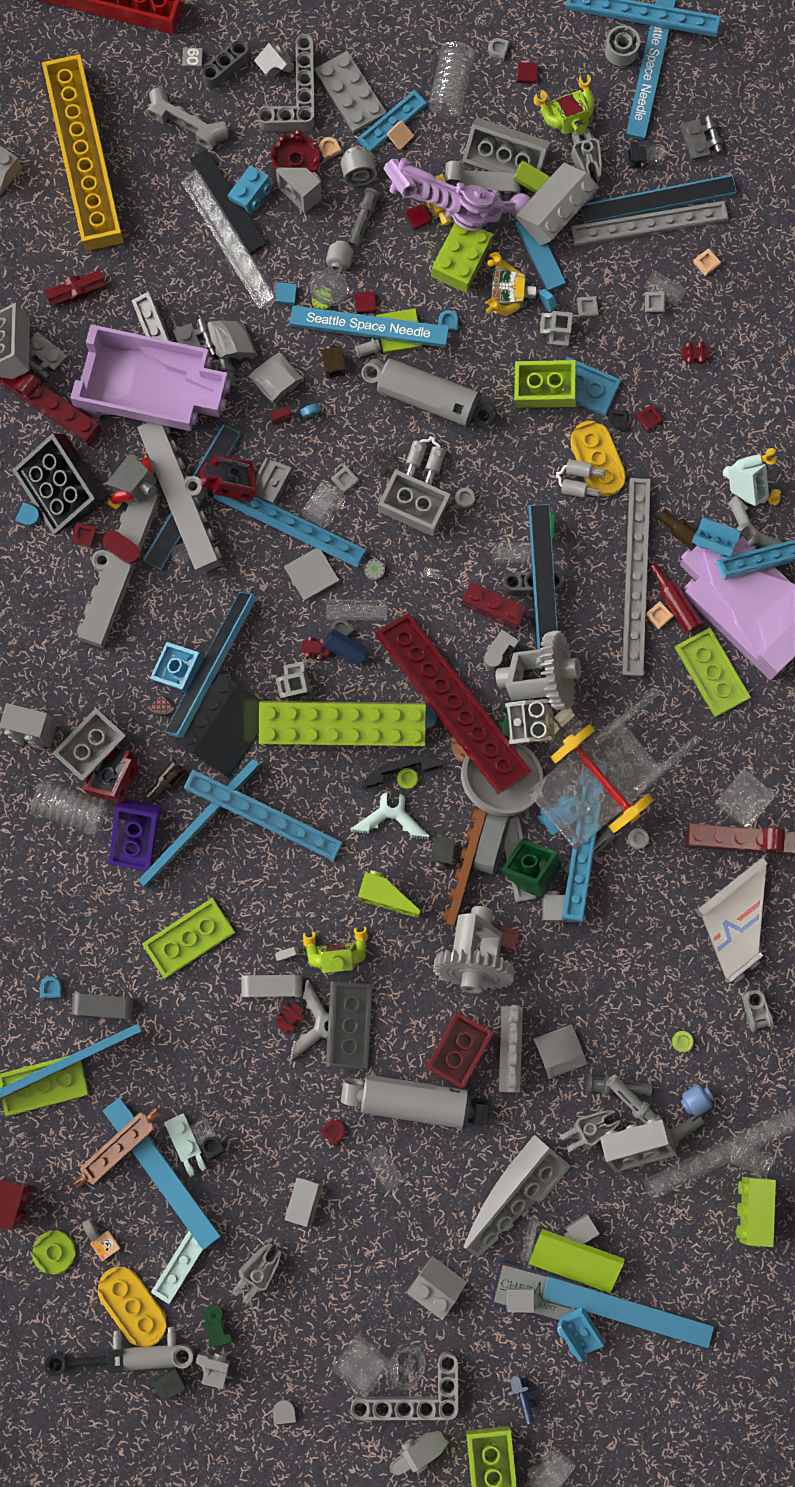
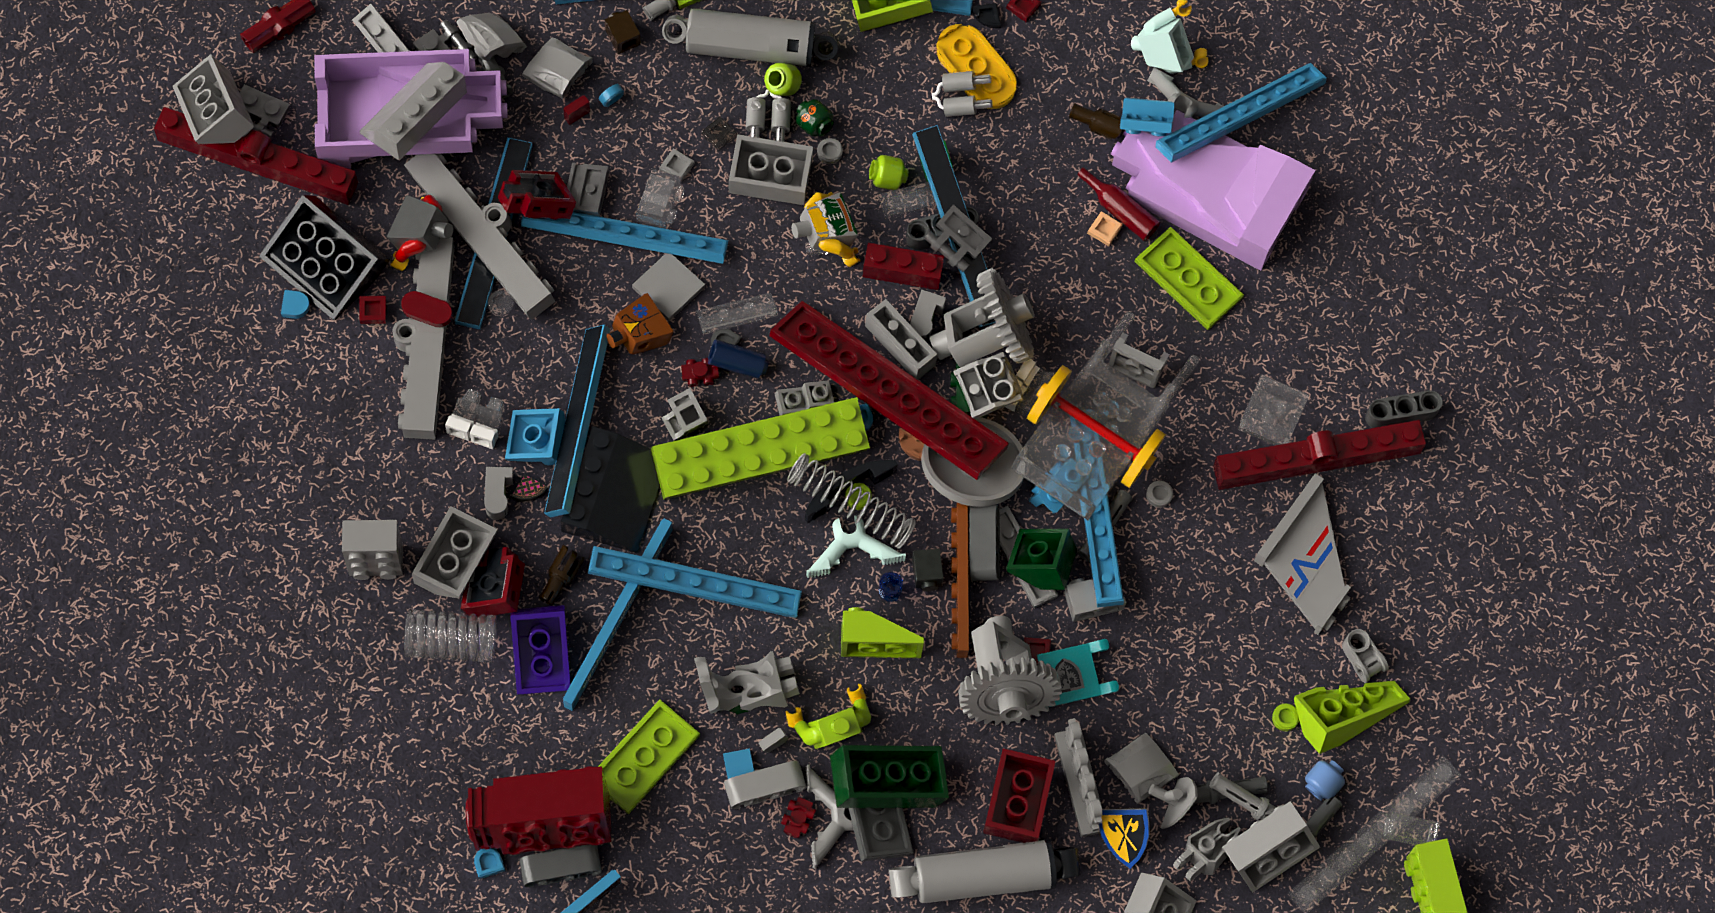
camera: 20 degrees left, 10 degrees down
(96, 965) = (540, 811): none -> dark red piece
(135, 644) = (476, 421): none -> hips
(135, 702) = (495, 490): none -> light grey leg
(153, 388) = (415, 108): none -> light grey slope
(257, 964) = (738, 763): none -> dark azure tile
(279, 602) = (640, 327): none -> dark orange torso
(287, 913) = (760, 683): none -> light grey hips
(360, 757) = (802, 465): none -> light grey piece
(364, 1009) = (889, 776): none -> dark green brick
(374, 569) = (744, 261): light grey tile -> none
(388, 690) = (805, 397): none -> light grey slope
(415, 854) = (885, 592): none -> clear blue bush
(444, 432) = (782, 79): none -> lime head
(444, 560) = (828, 226): none -> torso
(460, 469) = (814, 118): none -> dark green head
(474, 665) = (900, 339): none -> light grey brick
(504, 527) = (888, 172): none -> lime head
(531, 962) = (1078, 671): none -> teal flag
(531, 1100) = (1125, 833): none -> shield
(545, 593) = (963, 232): none -> flat silver plate
(580, 1088) = (1179, 799): none -> light grey shield
(636, 577) = (1064, 192): light grey plate -> none
(649, 732) = (1137, 359): none -> light grey piece
(726, 1051) = (1340, 714): none -> lime wedge

